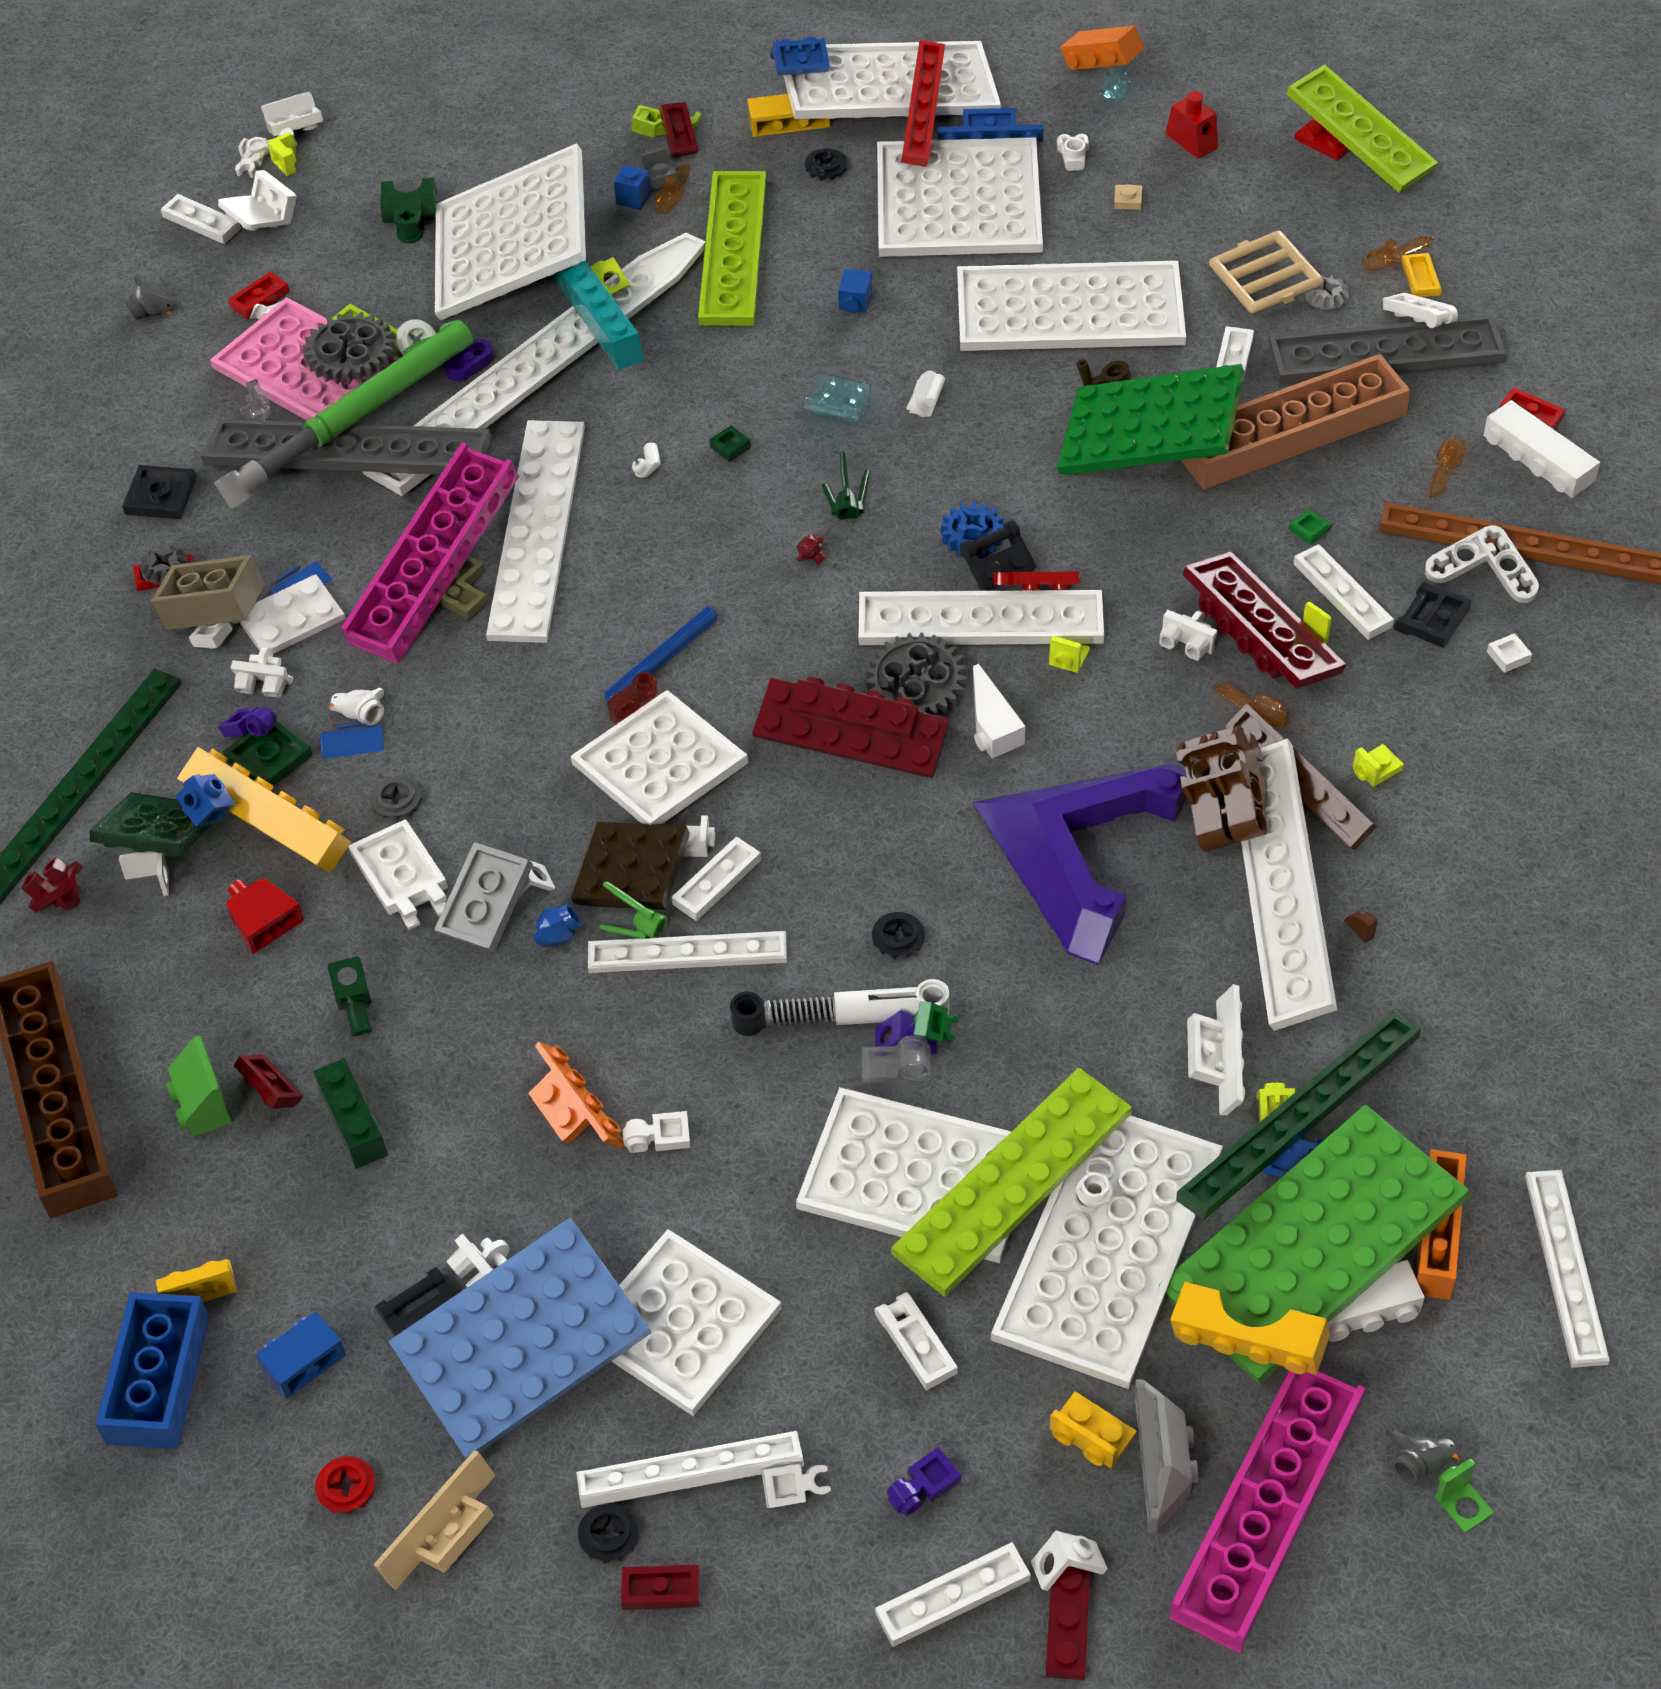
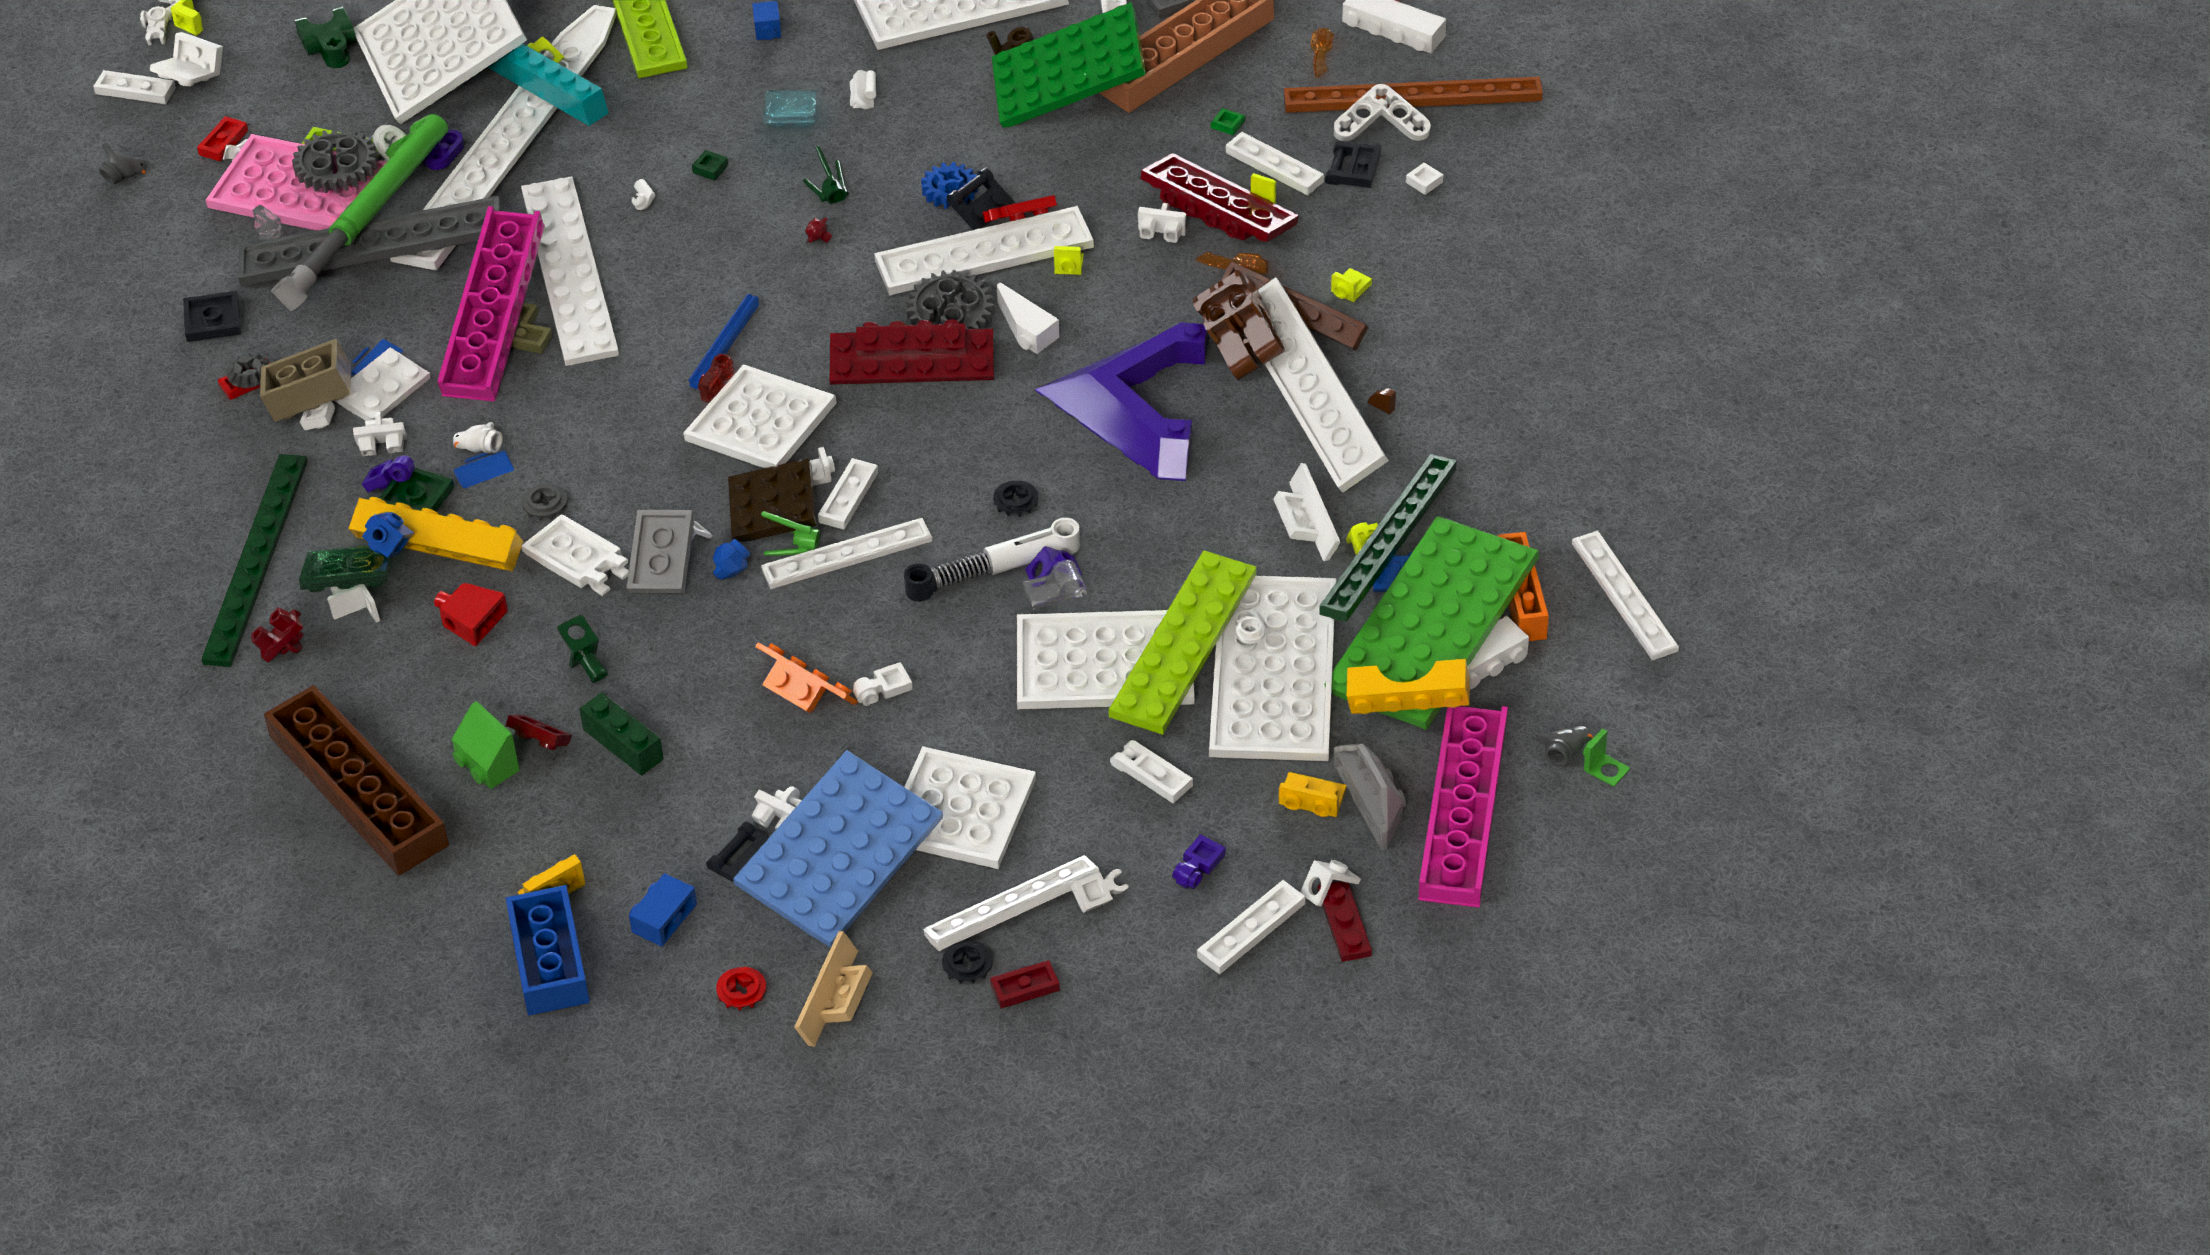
camera: 20 degrees left, 5 degrees down
(933, 1022) = (1074, 547): green plate -> none

